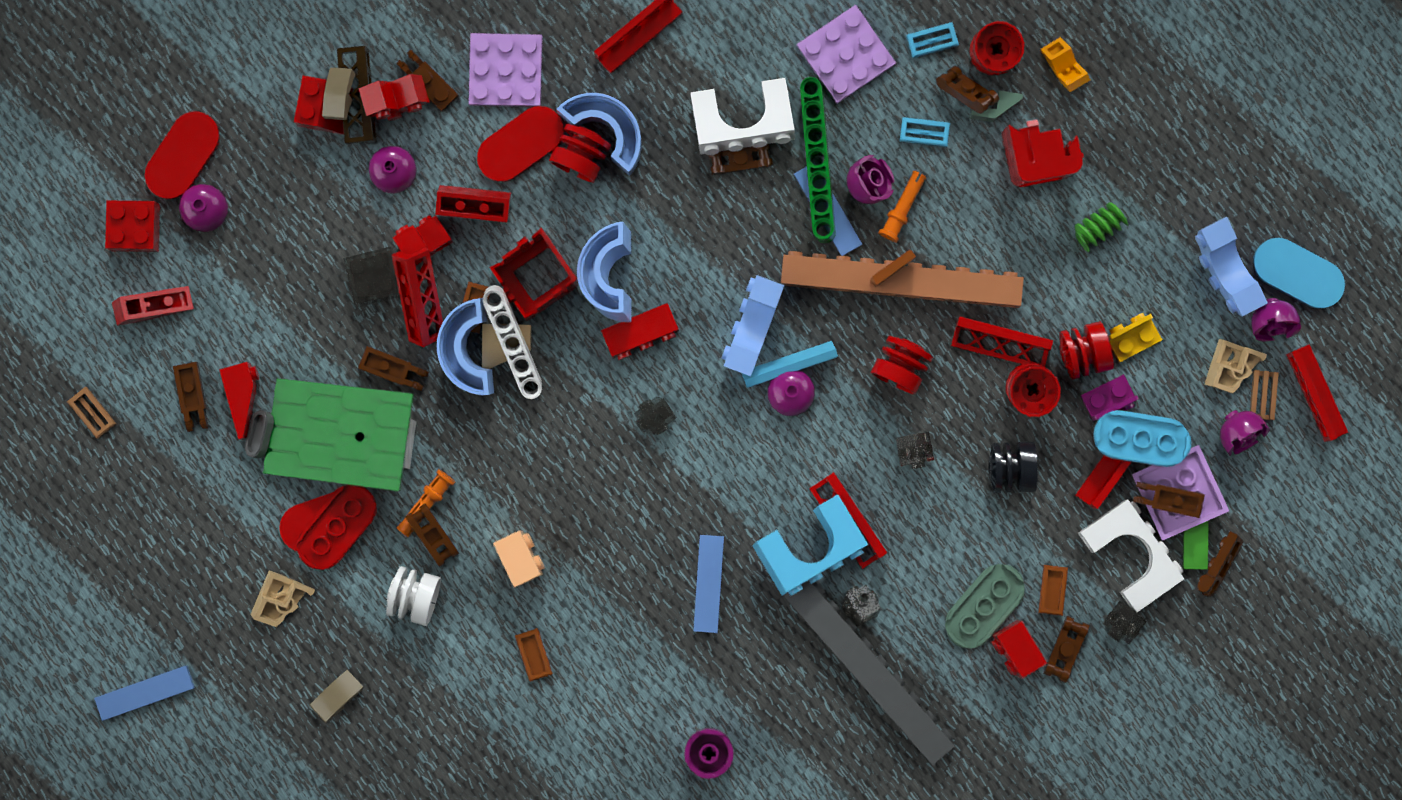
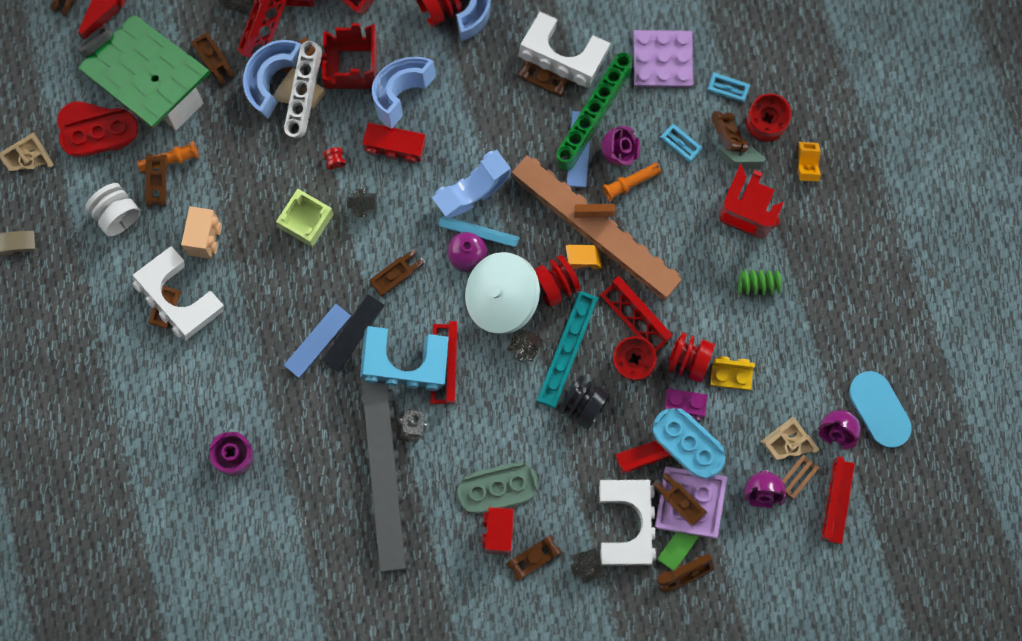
camera: 30 degrees right, 10 degrees down
(567, 656) = (185, 320): none -> white arch
(592, 389) = (334, 158): none -> red wheel
(608, 470) = (305, 217): none -> yellowish green container
(736, 465) = (395, 273): none -> reddish brown hinge
(737, 551) = (353, 333): none -> black tile
(859, 413) = (502, 293): none -> light aqua dish
(912, 320) = (583, 256): none -> light orange slope
(957, 422) = (567, 349): none -> teal tile
(1053, 590) = (553, 510): dark orange tile -> none
(1227, 269) = (831, 361): light blue brick -> none

